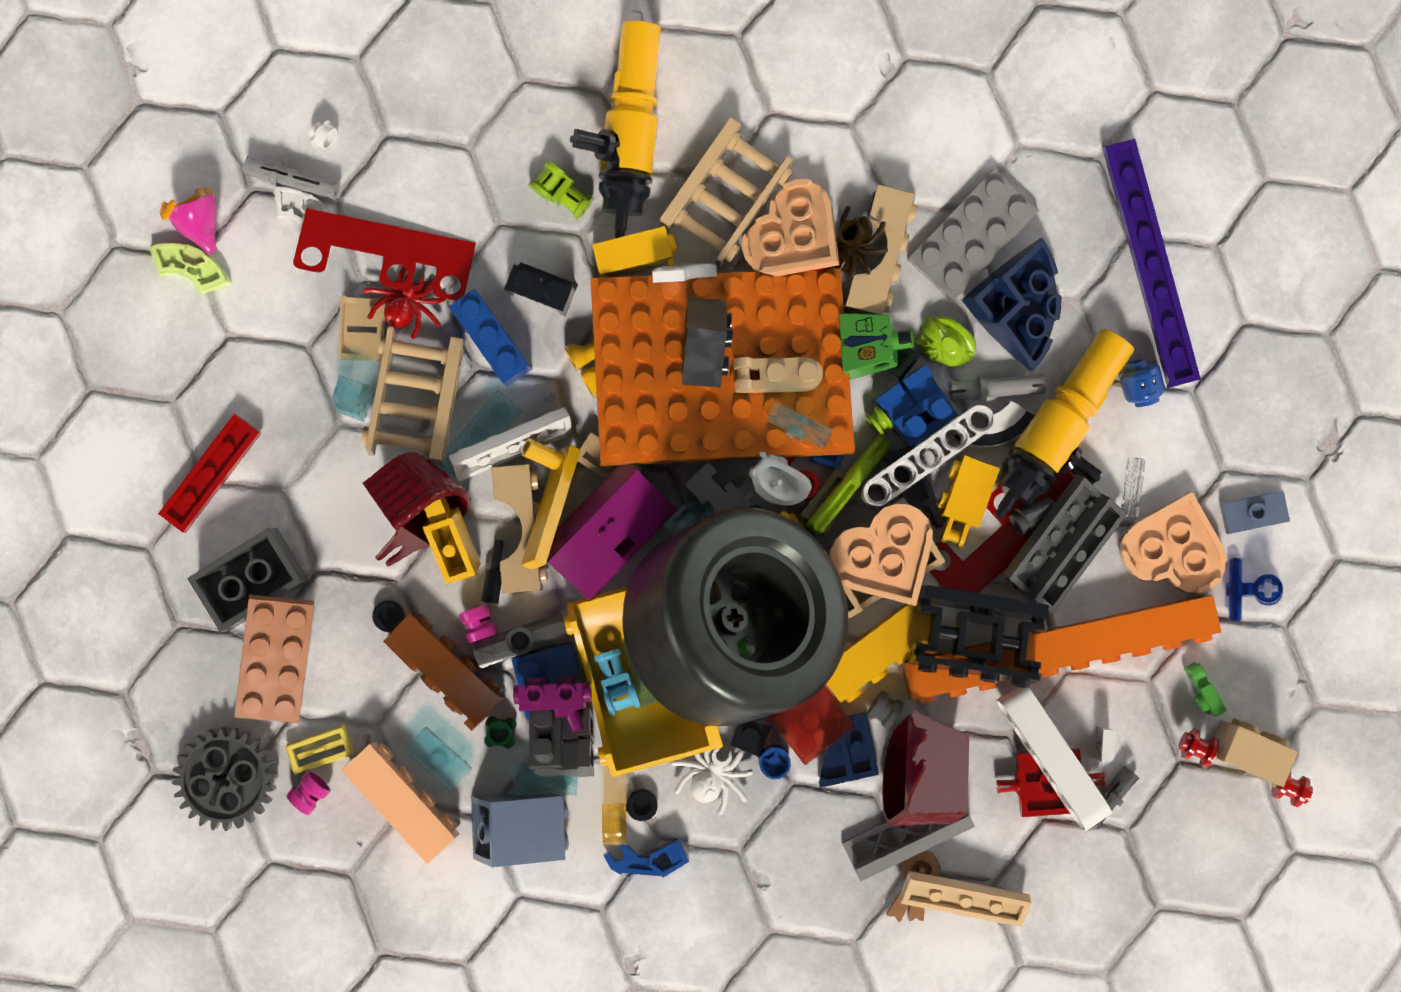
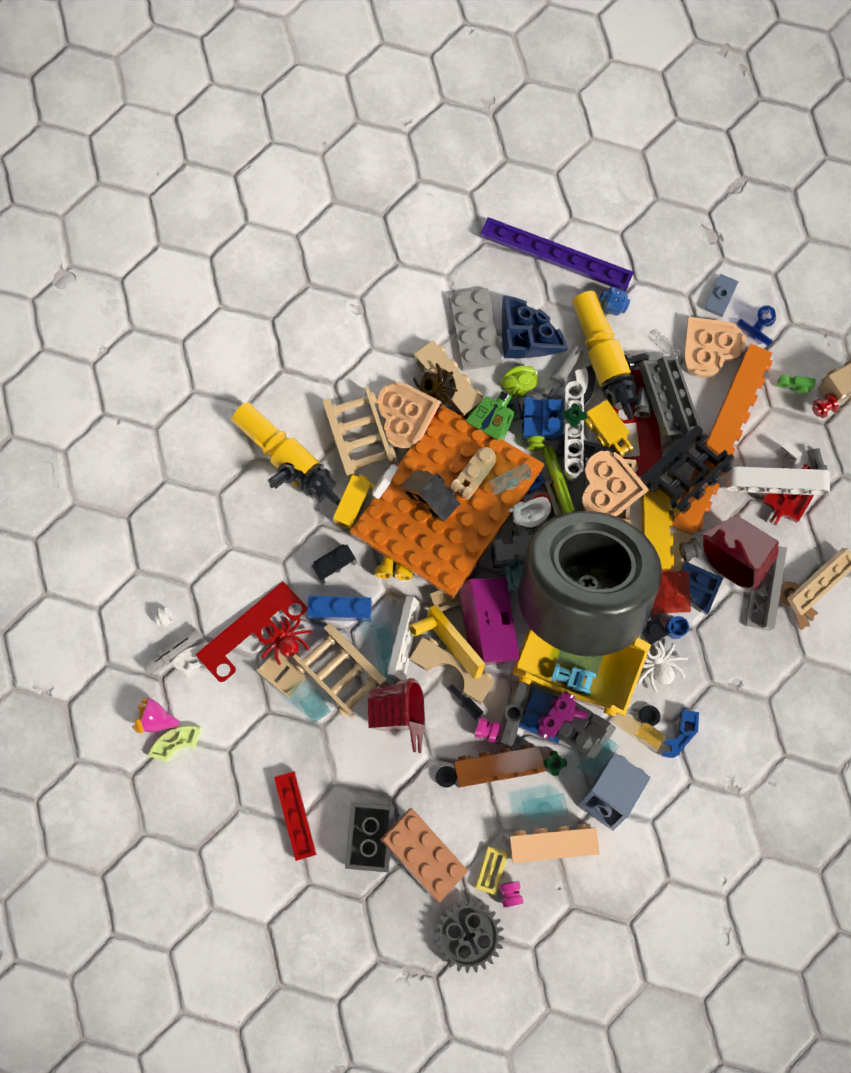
camera: 50 degrees left, 10 degrees down
(450, 542) = (434, 710): yellow brick -> none
(557, 187) = (290, 515): lime connector -> none
(939, 435) = (574, 421): none -> dark green plate

